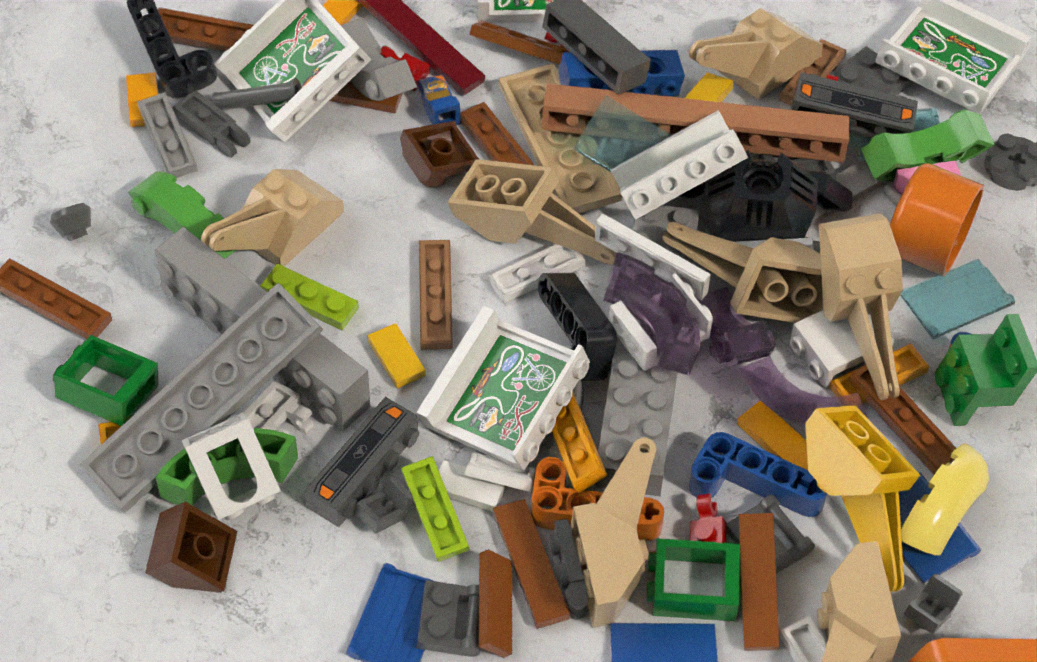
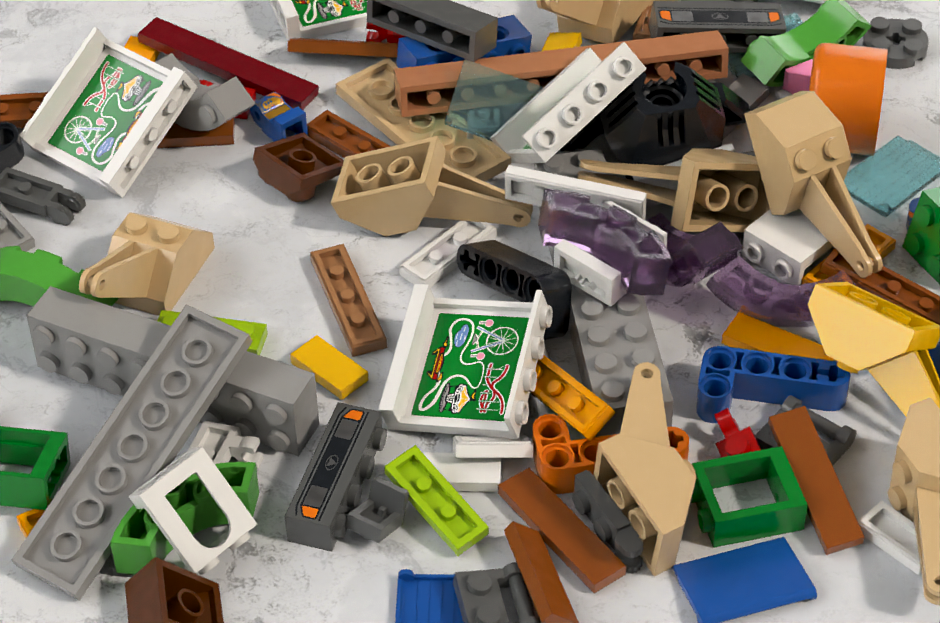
camera: 15 degrees left, 10 degrees down
(257, 95) = (79, 154): dark grey pin -> none

